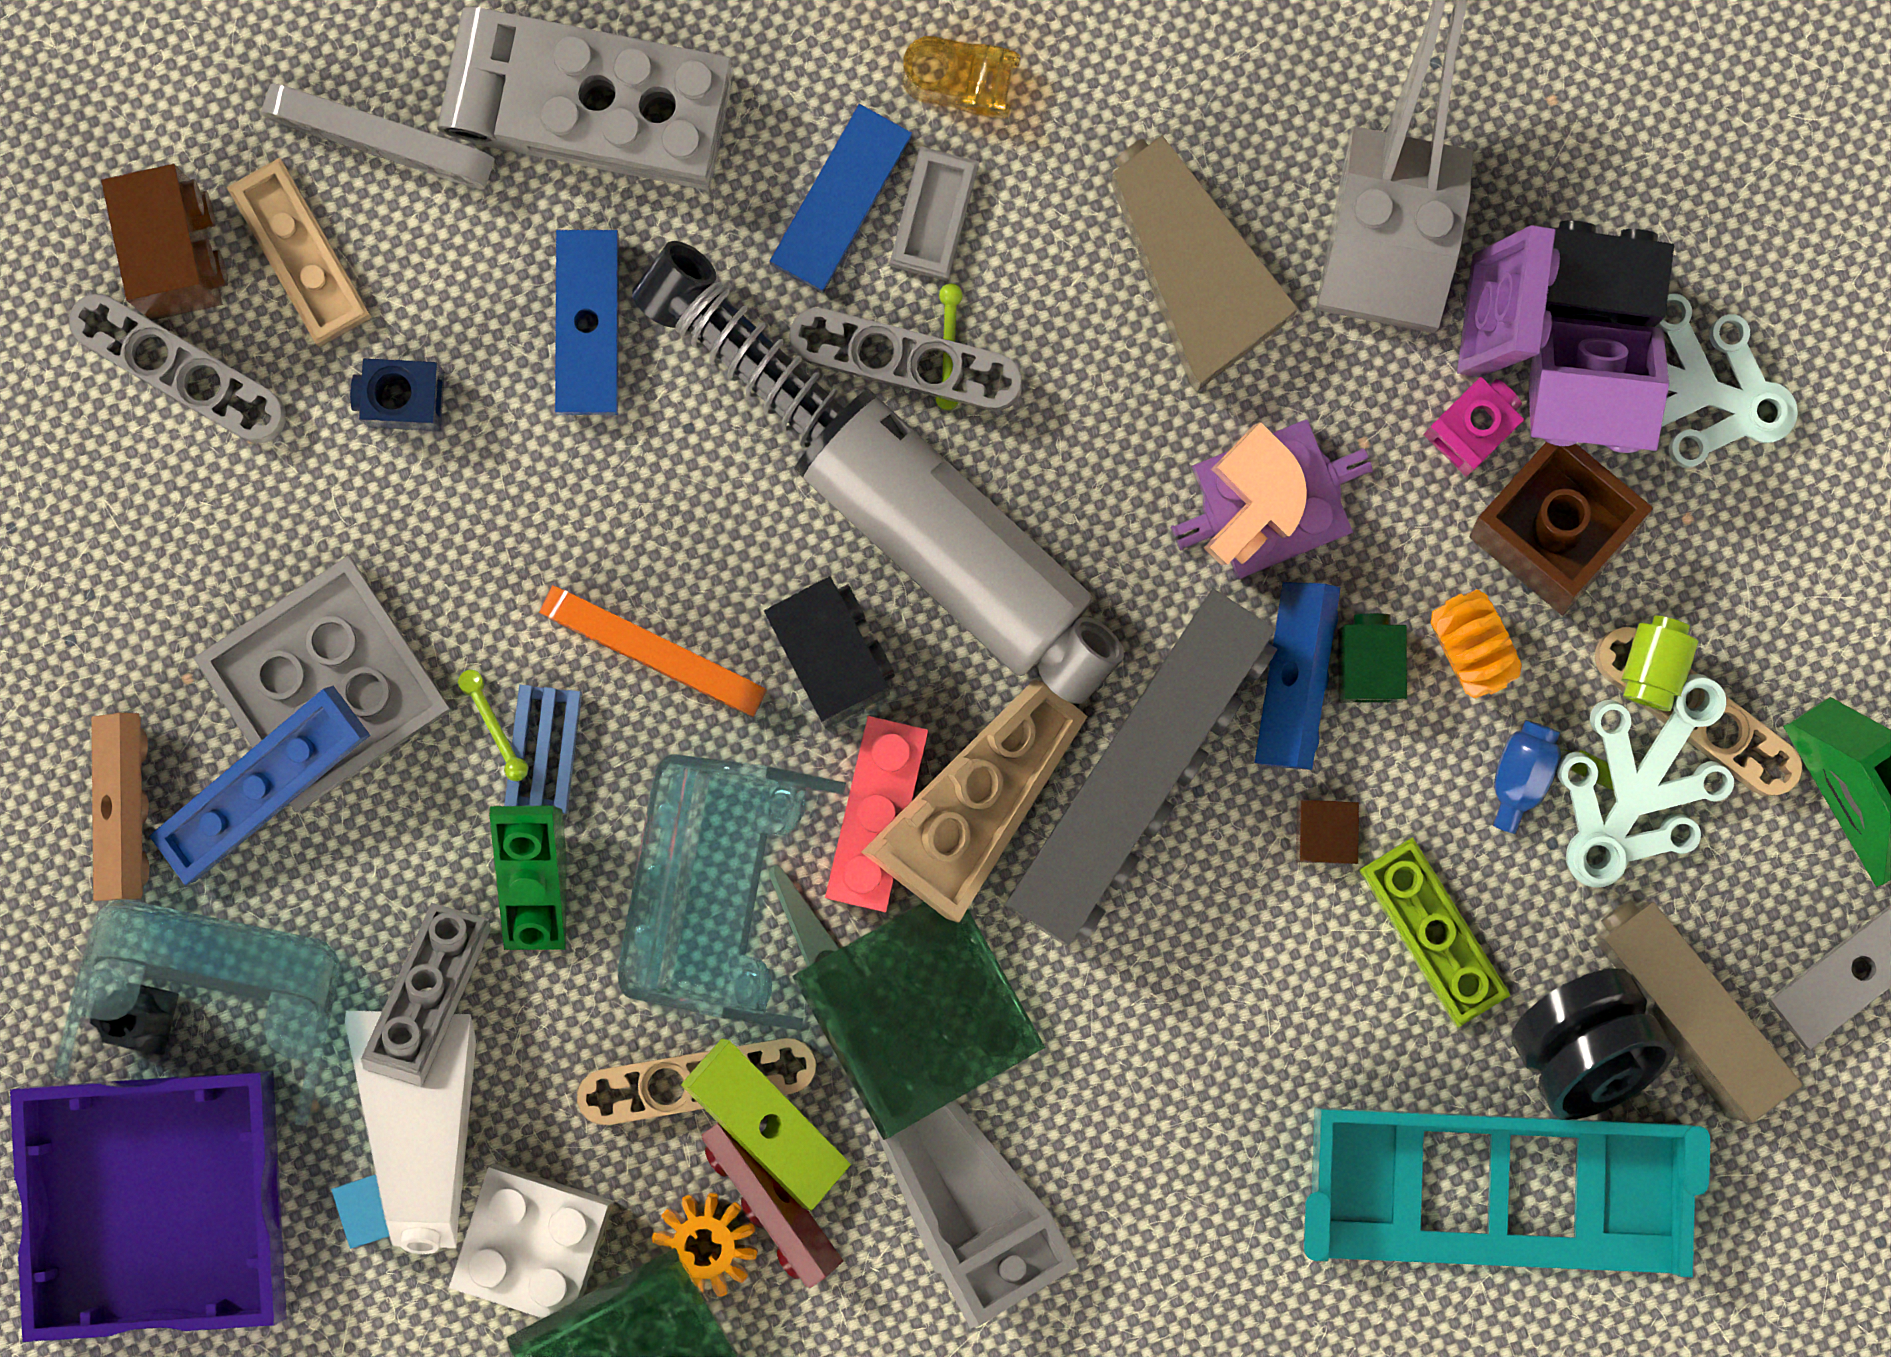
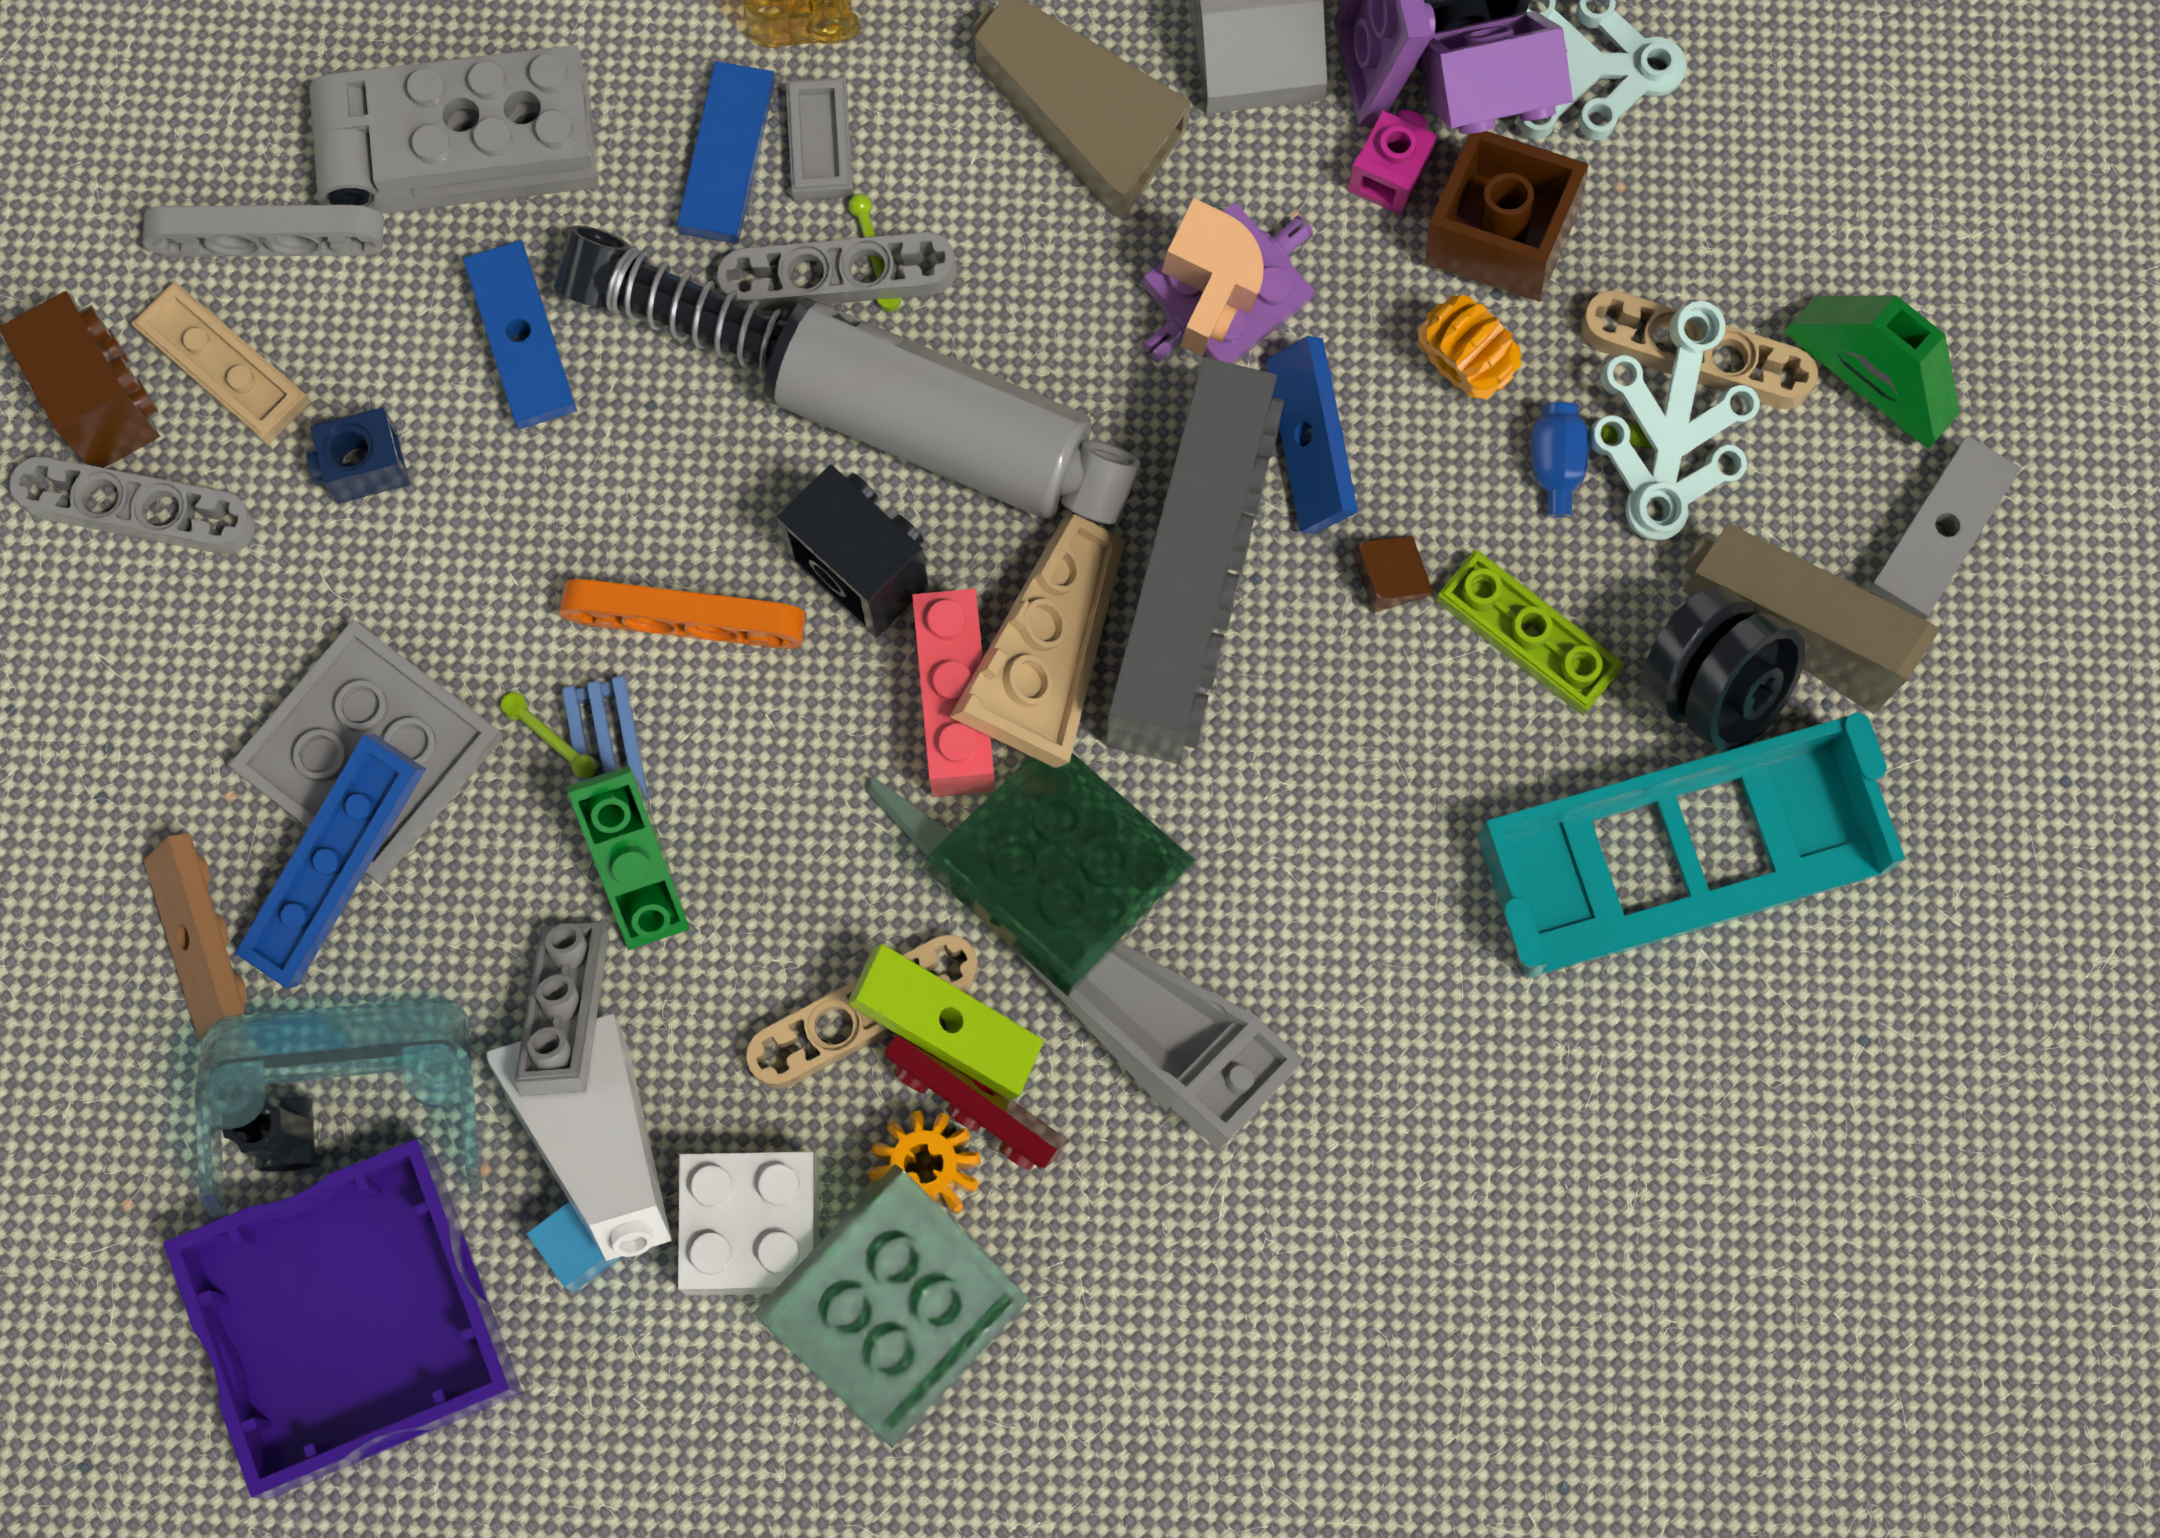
camera: 20 degrees left, 10 degrees down
(701, 885) = (802, 809): clear light blue windscreen -> none
(1372, 660) = (1378, 399): dark green brick -> none
(1659, 663) = (1647, 306): lime brick -> none

